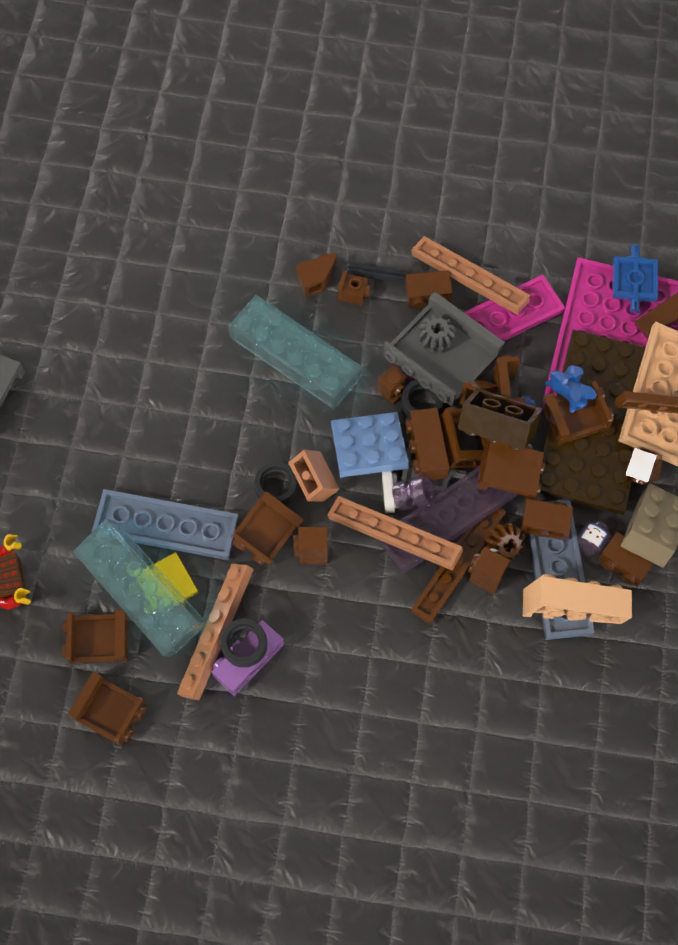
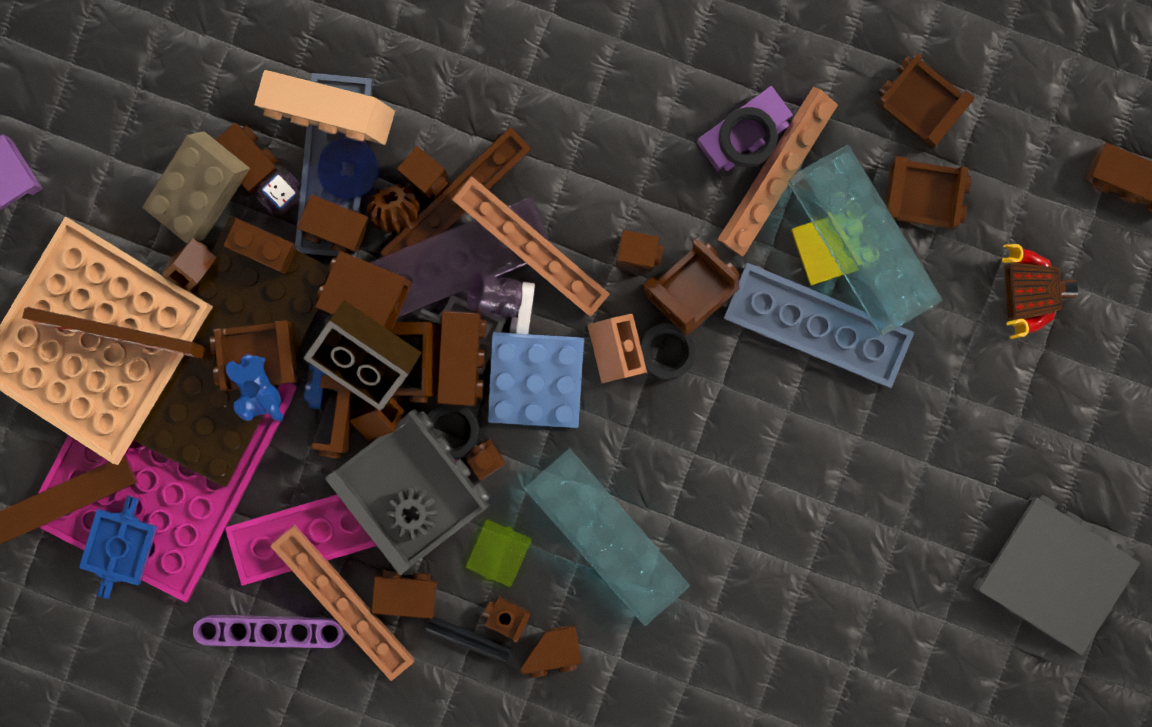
camera: 170 degrees left, 20 degrees up
(369, 331) = (498, 553): none -> clear neon green piece
(524, 246) = (255, 636): none -> medium lavender beam
(546, 549) = (331, 165): none -> clear blue plate
(596, 486) = (260, 246): none -> reddish brown brick

